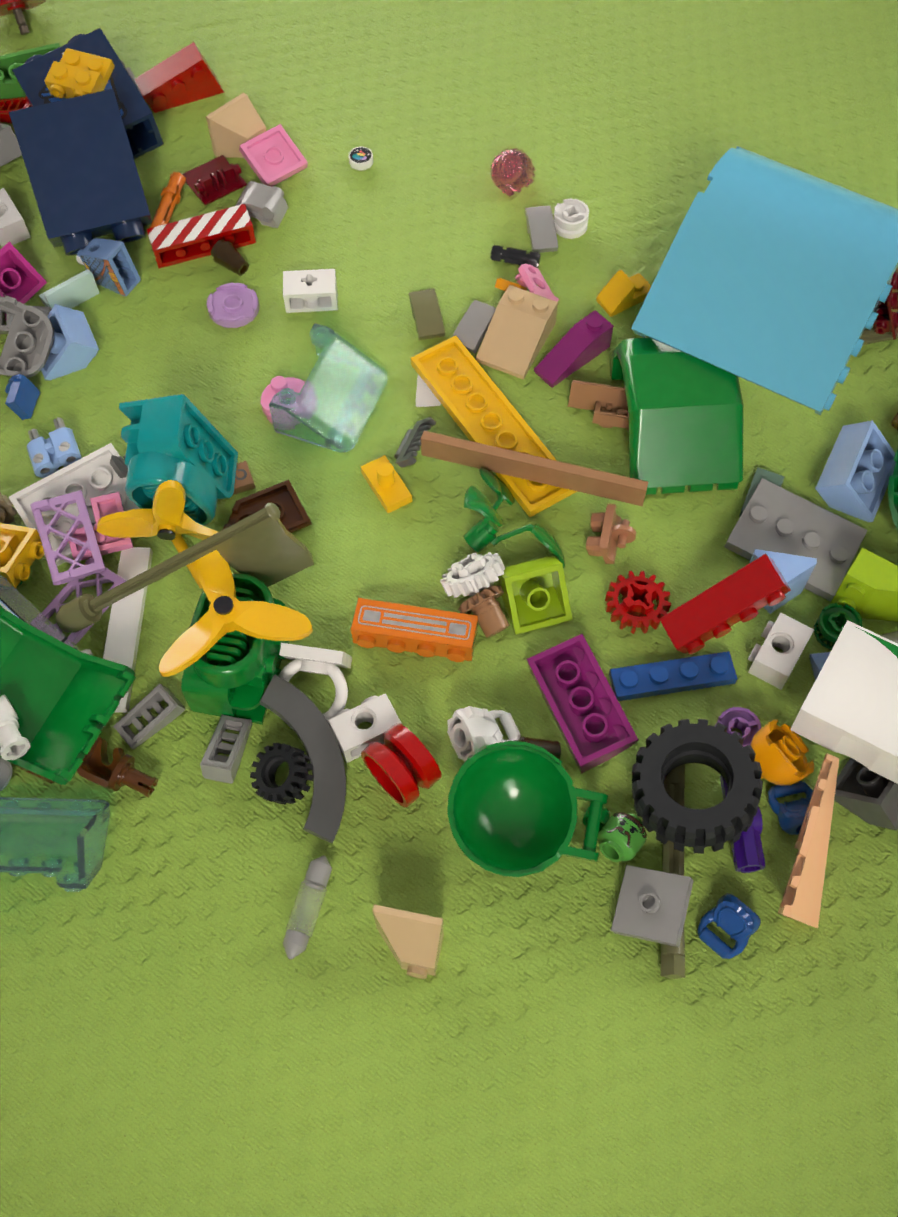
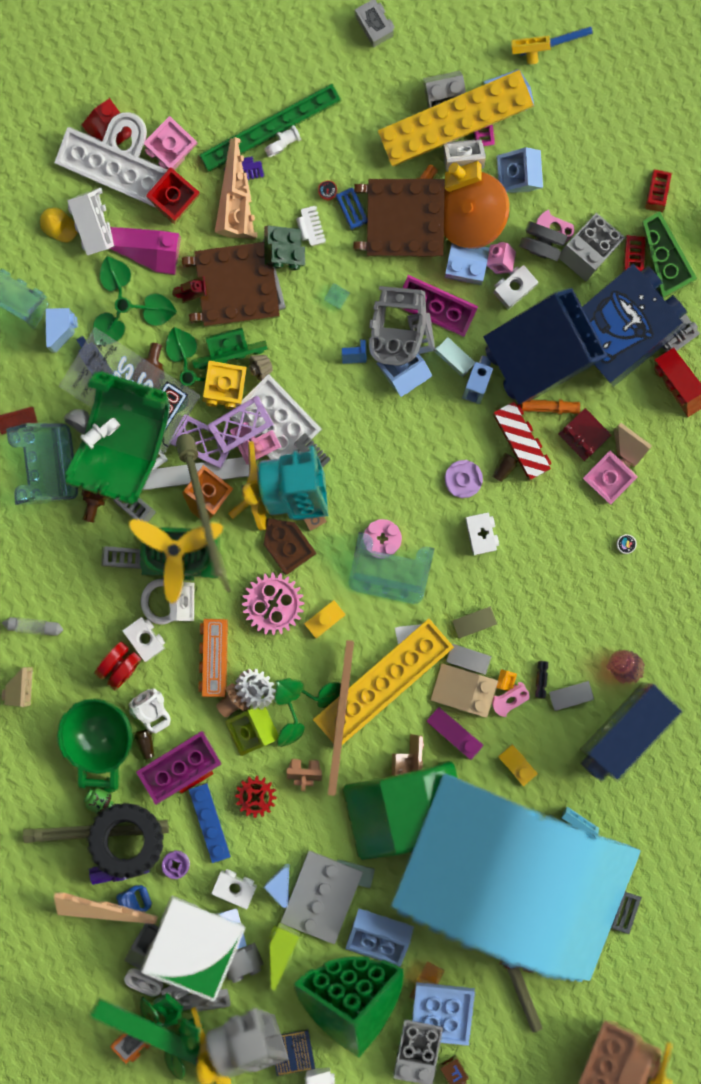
camera: 85 degrees right, 25 degrees up
(52, 452) = (313, 389): light blue piece -> none
(78, 74) = (630, 320): yellow plate -> none
(163, 603) = (213, 490): none -> orange slope
(264, 203) = (562, 477): light grey cylinder -> none
(267, 769) = (112, 602): black tyre -> none
(323, 750) = (124, 616): dark grey tile -> none
(349, 541) = (288, 612): none -> bright pink gear
(412, 442) = (357, 629): dark grey piece -> none
(571, 218) = (590, 723): white wheel -> none
(597, 149) = (629, 732): none -> dark blue brick
(652, 905) = (59, 821): light grey plate -> none
(725, 604) = (250, 852): red brick -> none
(735, 920) = (61, 868): blue piece -> none
(781, 754) = (158, 889): light orange cylinder -> none
(833, 621) = (258, 925): green wheel -> none

